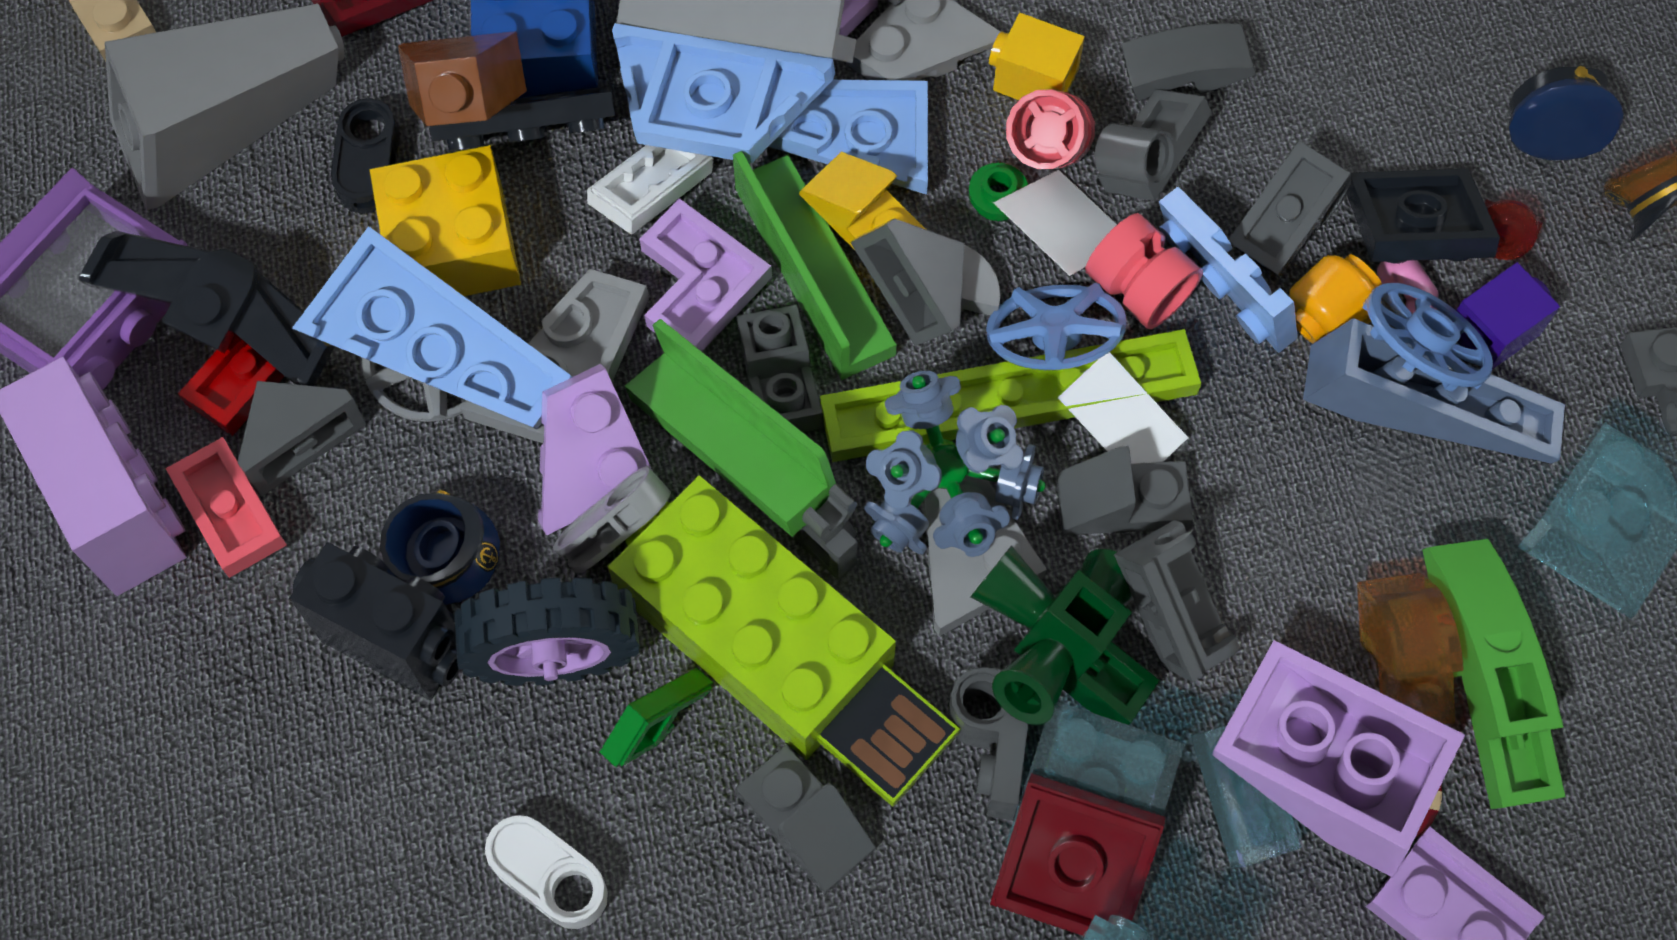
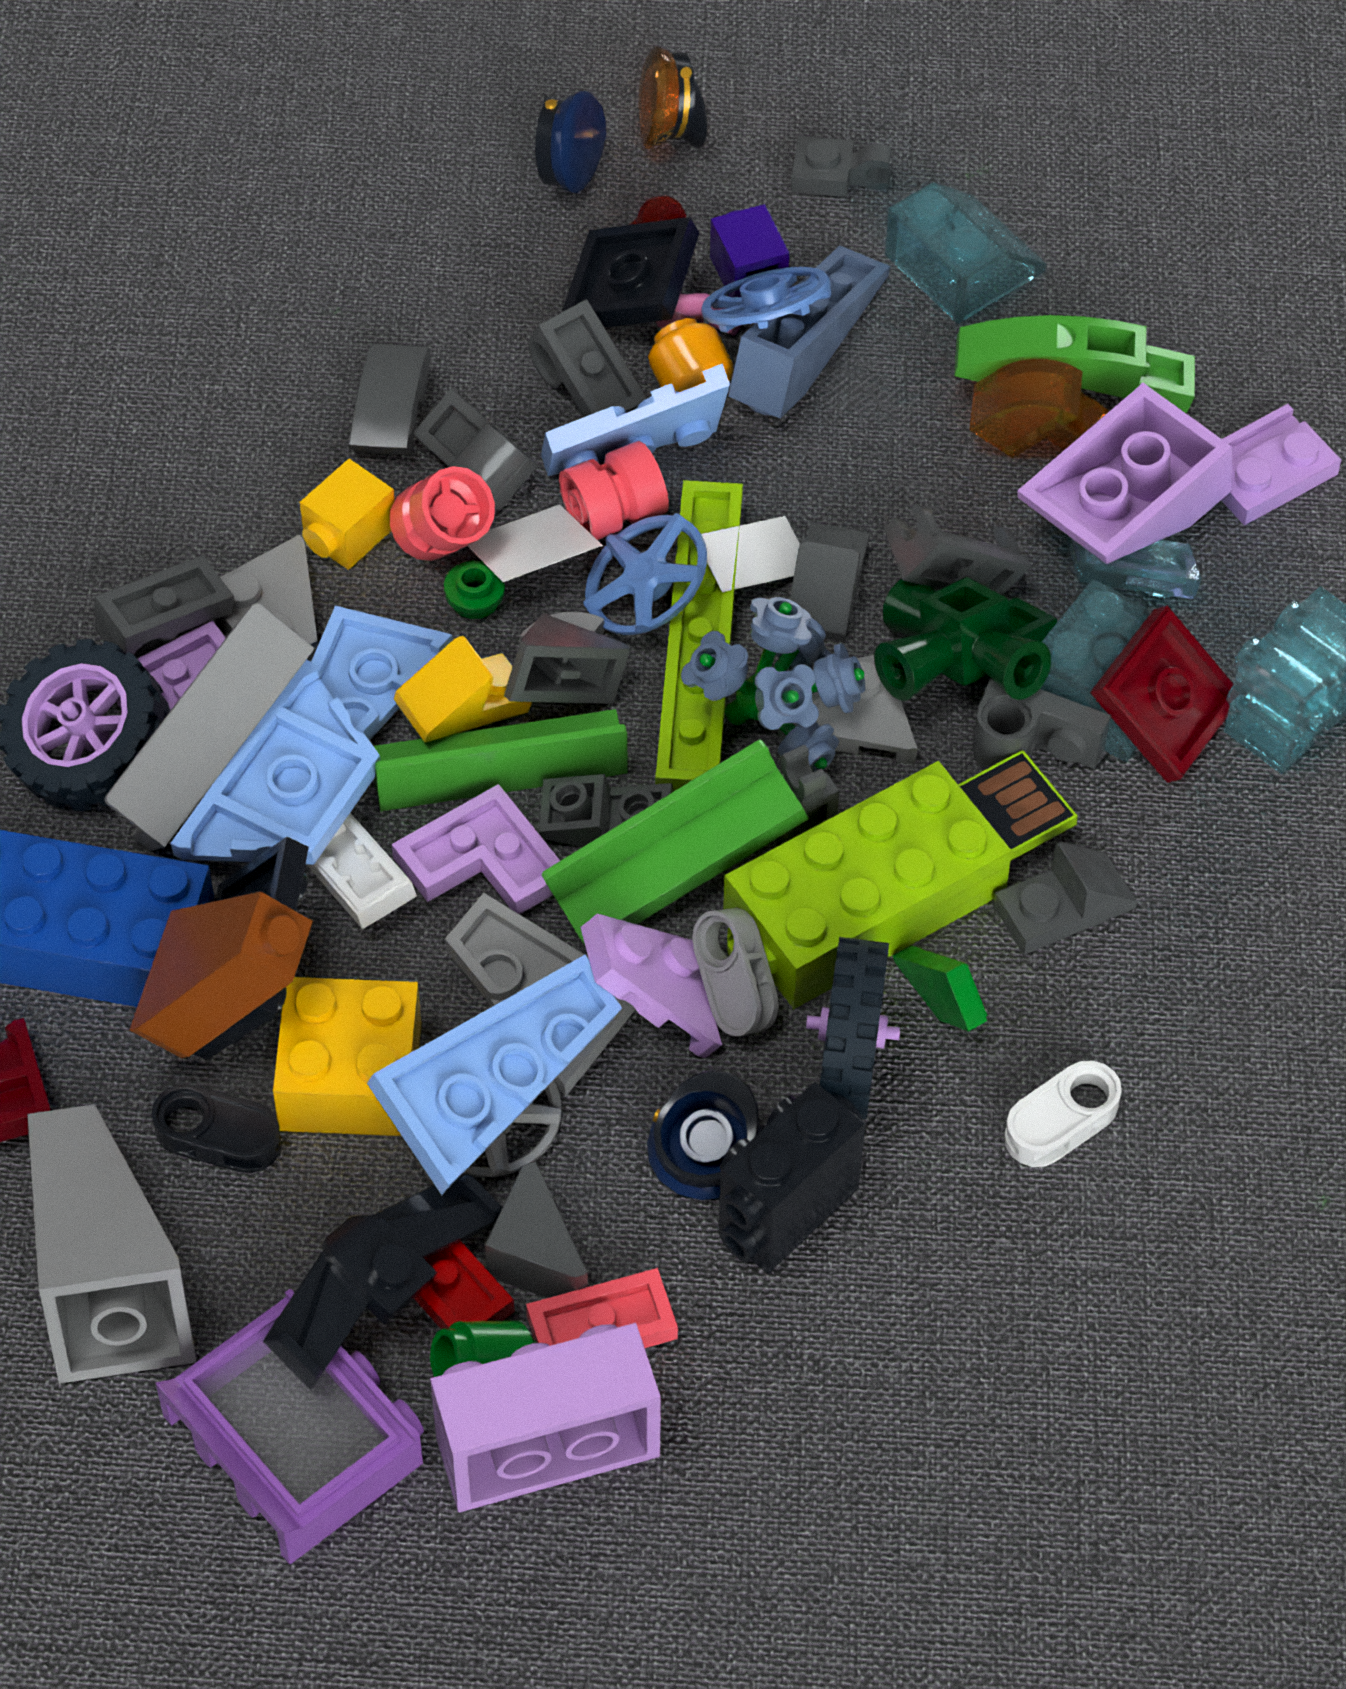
camera: 75 degrees left, 10 degrees down
(158, 415) = (476, 1342): none -> green brick

